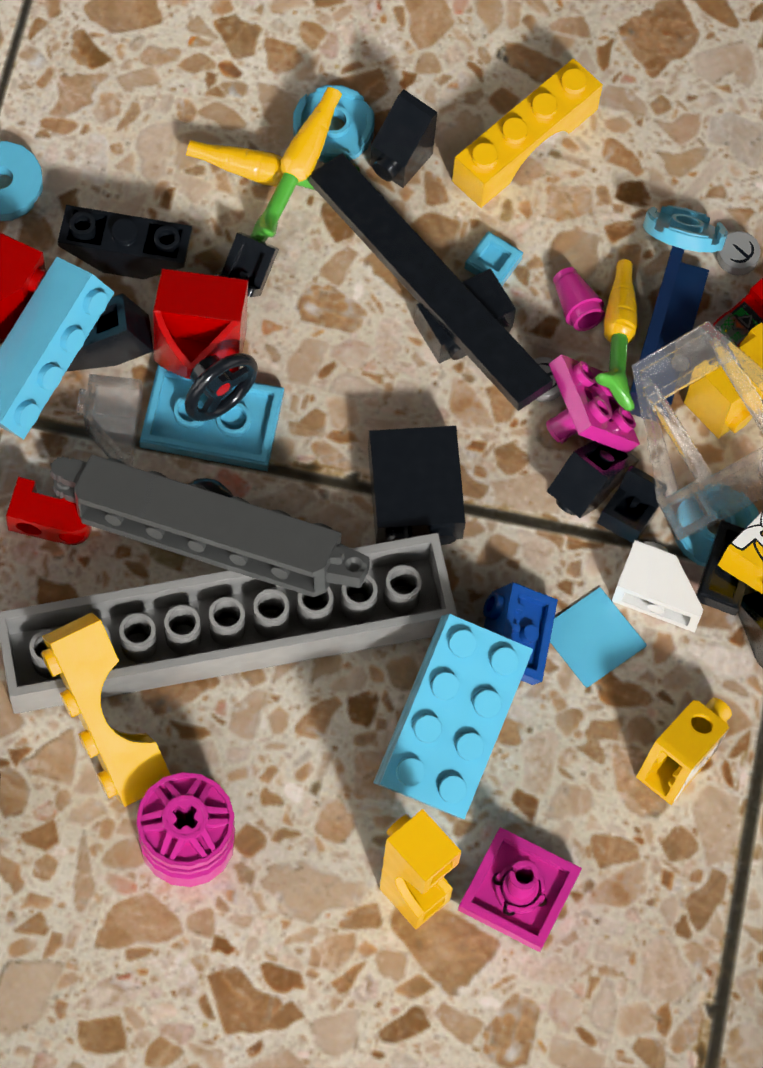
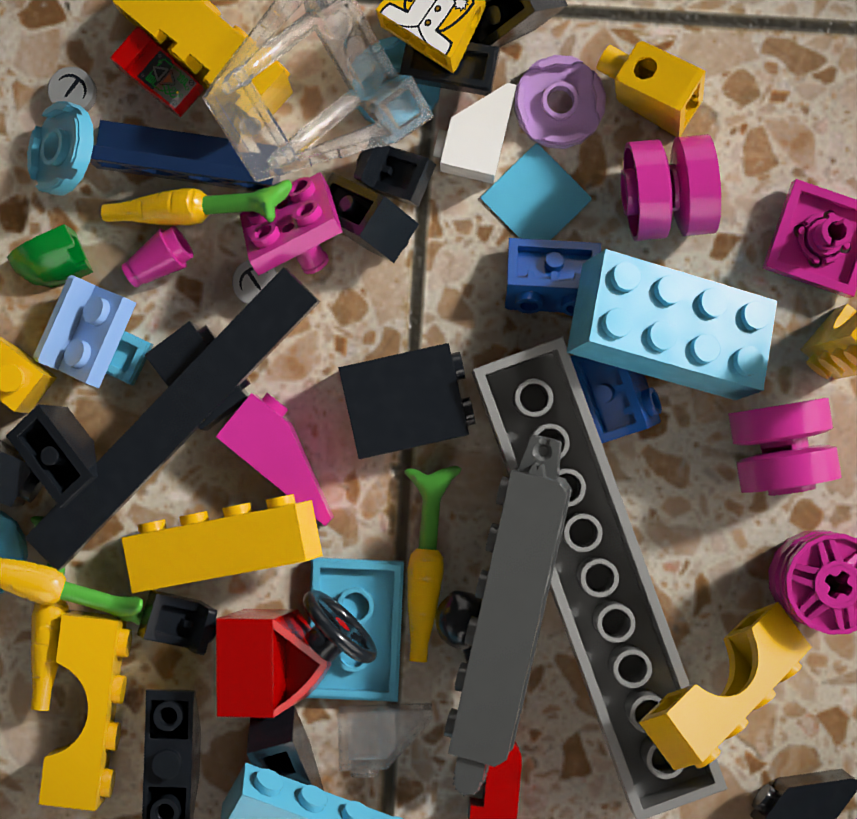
camera: 90 degrees left, 20 degrees up
(229, 198) = (93, 651): none -> yellow arch
(263, 483) = (426, 563): none -> yellow piece
(310, 308) = (222, 546): none -> yellow brick
(336, 807) = (786, 458): none -> dark pink wheel
(385, 371) = (272, 448): none -> dark pink slope
(387, 673) = (617, 398): none -> blue bracket
(416, 186) = (56, 451): none -> black slope
(520, 227) = (84, 331): none -> light blue bracket
(586, 740) = (685, 186): none -> dark pink wheel
(589, 216) = (50, 258): none -> green brick
(682, 644) = (554, 128): none -> lavender tile

